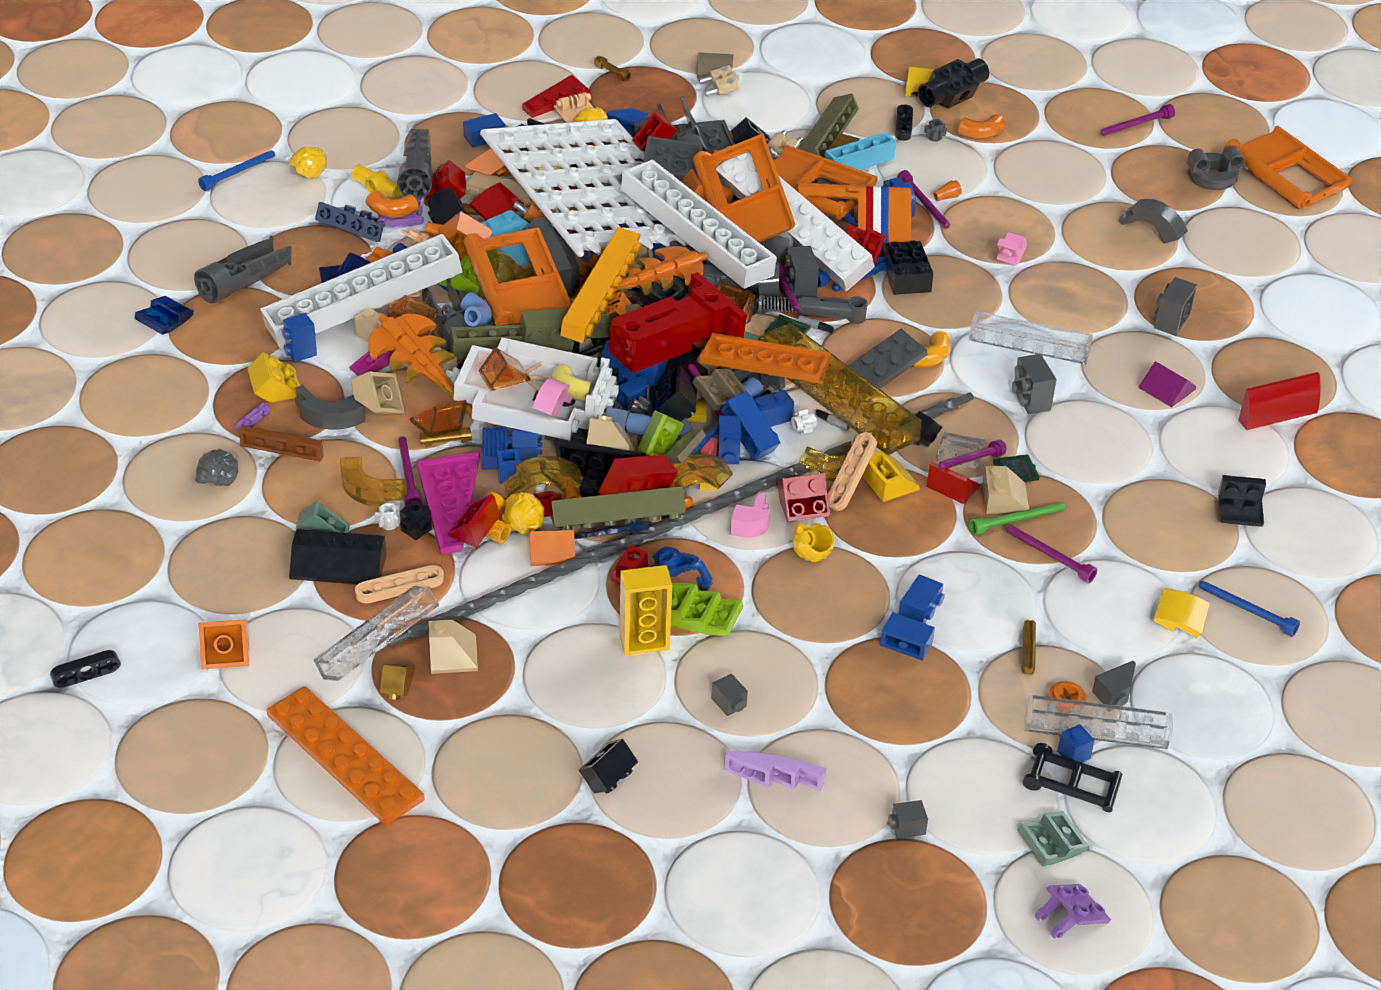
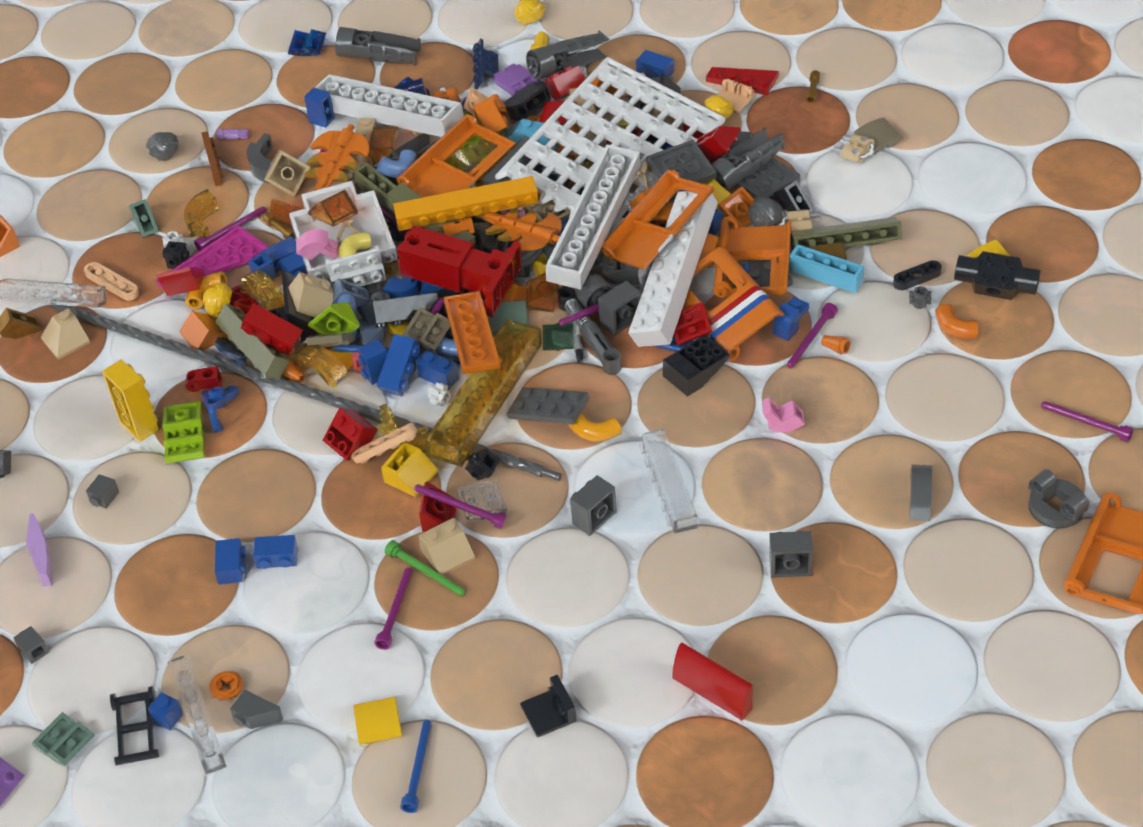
camera: 65 degrees right, 5 degrees up
(272, 378) = (274, 121): yellow slope -> none
(336, 556) = (115, 241): black slope -> none
(392, 207) = (503, 72): orange cylinder -> none
(627, 118) = (744, 122): blue slope -> none
(751, 520) = (302, 419): bright pink brick -> none
(813, 542) = (295, 459): yellow hair -> none
(1020, 465) = (490, 545): piece -> none
(1029, 647) = (270, 639): pearl gold axle -> none
(1166, 385) = (687, 596): magenta slope -> none

